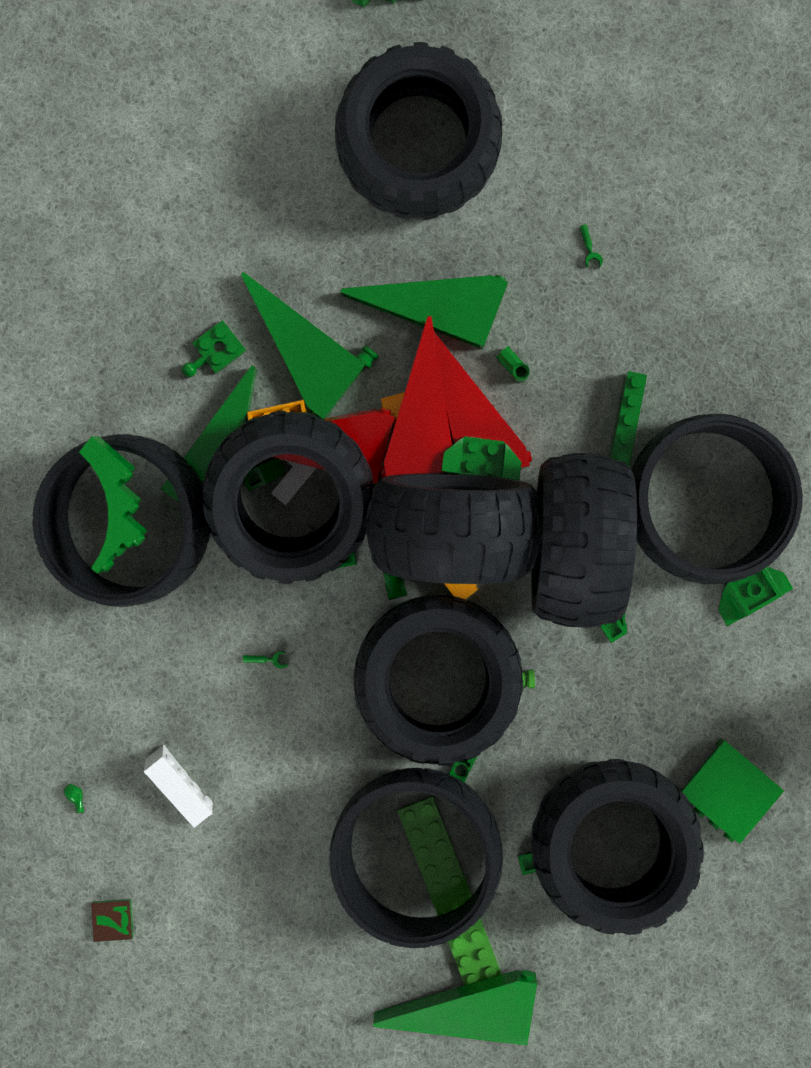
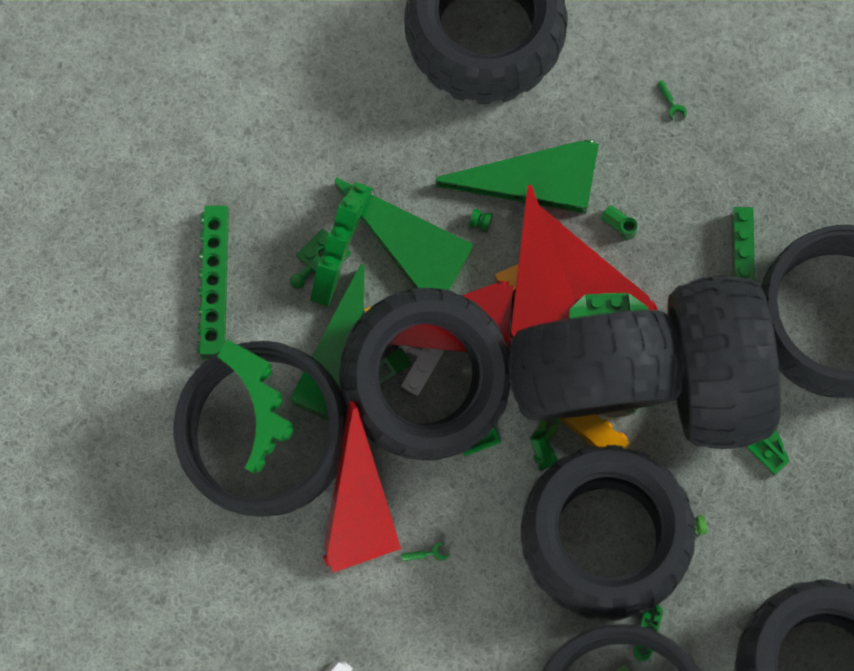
camera: 10 degrees left, 15 degrees down
(113, 289) = (210, 216): none -> green brick
(206, 617) = (359, 514): none -> red slope
(231, 340) = (338, 242): none -> green arch
(367, 356) = (474, 236): green wheel -> none
(382, 340) = (484, 221): none -> green wheel

